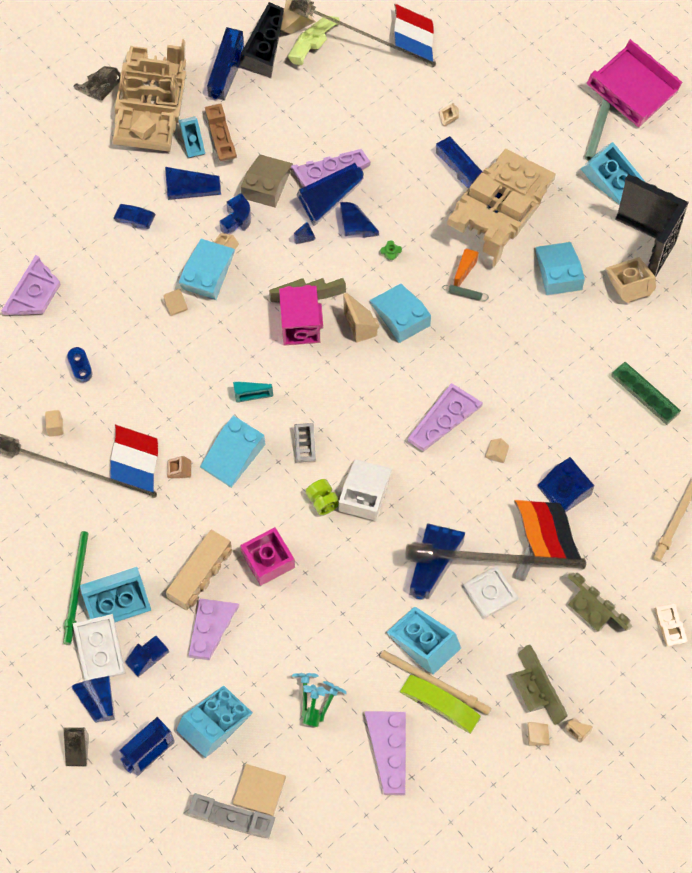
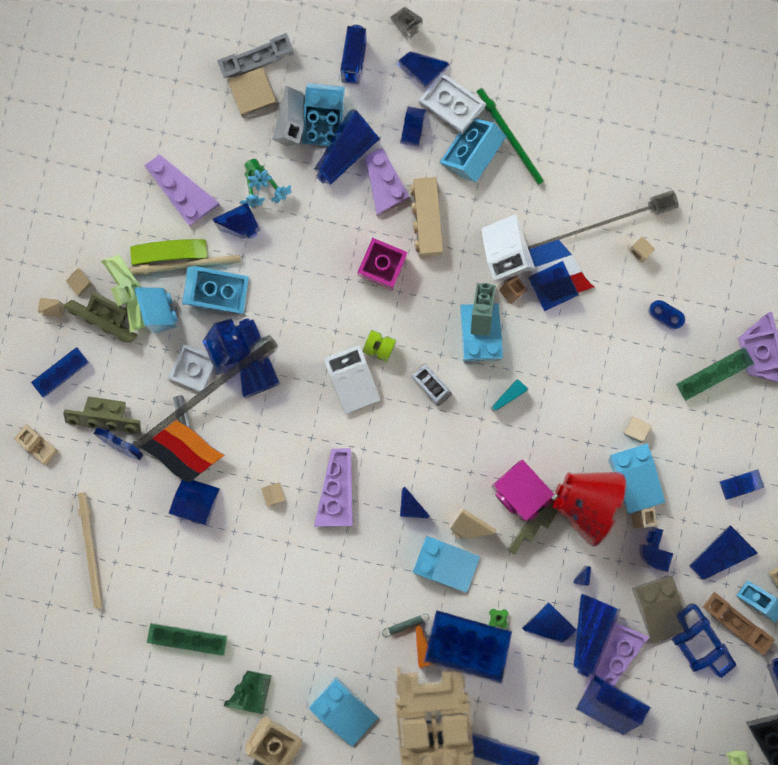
camera: 140 degrees right, 20 degrees up
(84, 297) = (714, 373): none -> clear green plate
(146, 444) = (553, 286): none -> clear blue plate
(158, 495) = (506, 249): none -> white slope
(216, 462) = (483, 309): none -> sand green slope
(220, 673) = (346, 147): none -> clear blue slope
(246, 734) = (290, 118): none -> light grey slope
(255, 261) = (590, 502): none -> red cone
(258, 146) = (690, 633): none -> clear blue bar
(355, 139) = (612, 706): none -> clear blue slope
(361, 678) = (238, 222): none -> clear blue slope
(395, 365) = (410, 506): none -> clear blue slope
(431, 237) = (468, 646): none -> clear blue slope
(452, 580) = (221, 340): none -> clear blue window
(486, 652) = (156, 308): none -> medium azure slope
(501, 690) = (125, 291): none -> yellowish green plate
(598, 573) = (118, 444): none -> clear blue tile
(608, 667) = (60, 372): none -> clear blue plate
(623, 325) = (250, 693): none -> clear green slope

